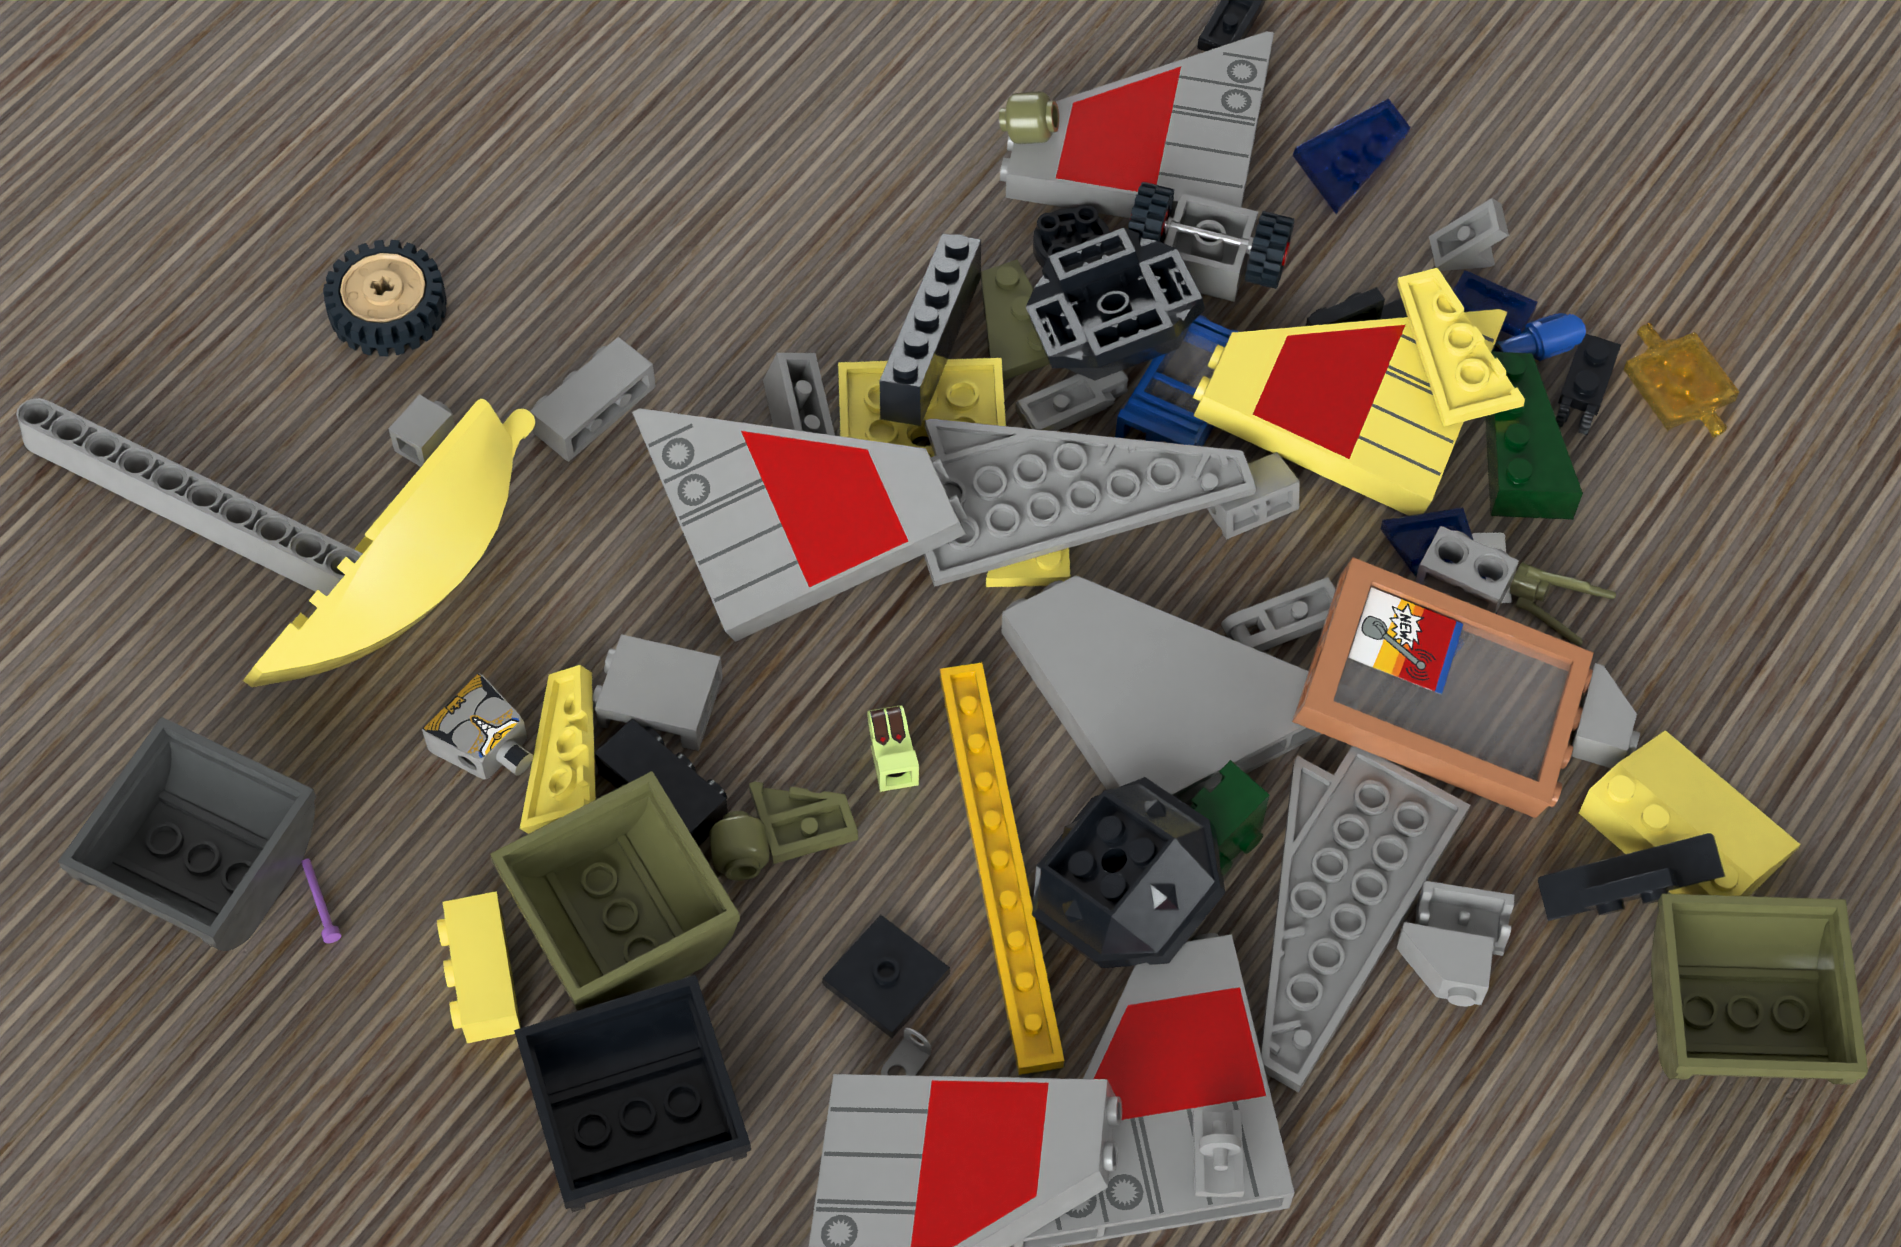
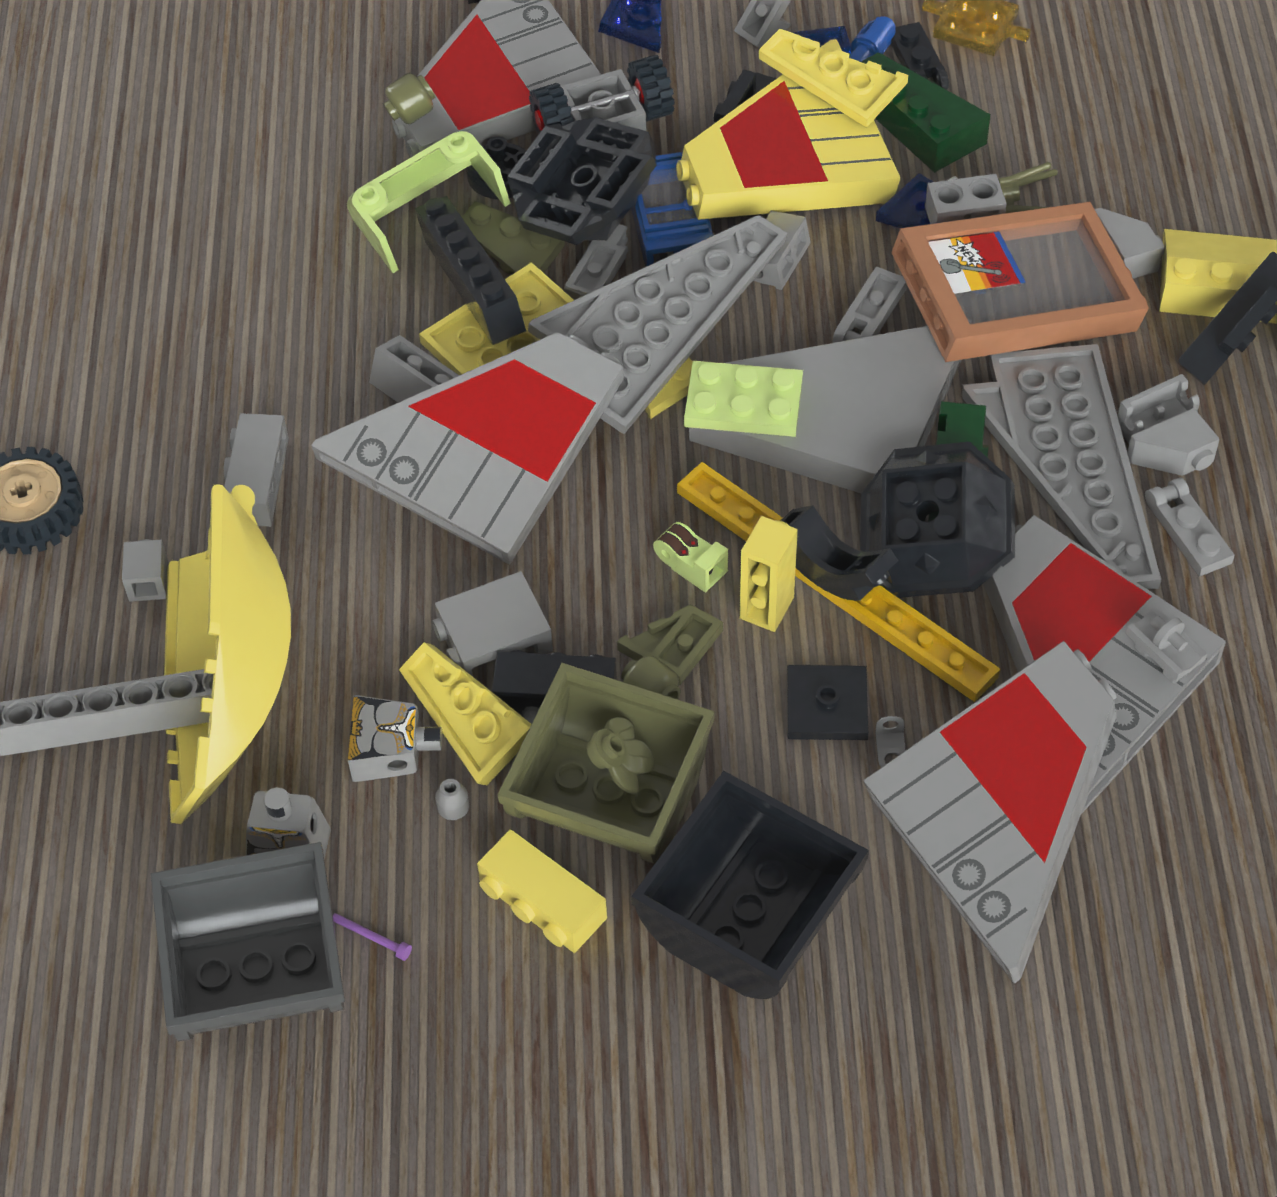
camera: 35 degrees left, 5 degrees down
(317, 746) = (284, 821): none -> light grey torso
(487, 828) = (452, 800): none -> light grey hose
(644, 895) = (621, 753): none -> olive plate
(922, 815) = (768, 573): none -> light yellow brick
(964, 202) = (416, 177): none -> yellowish green windscreen
(996, 836) = (832, 562): none -> black arch
(1065, 627) = (743, 398): none -> yellowish green plate
(1387, 1055) = (1189, 527): none -> light grey plate

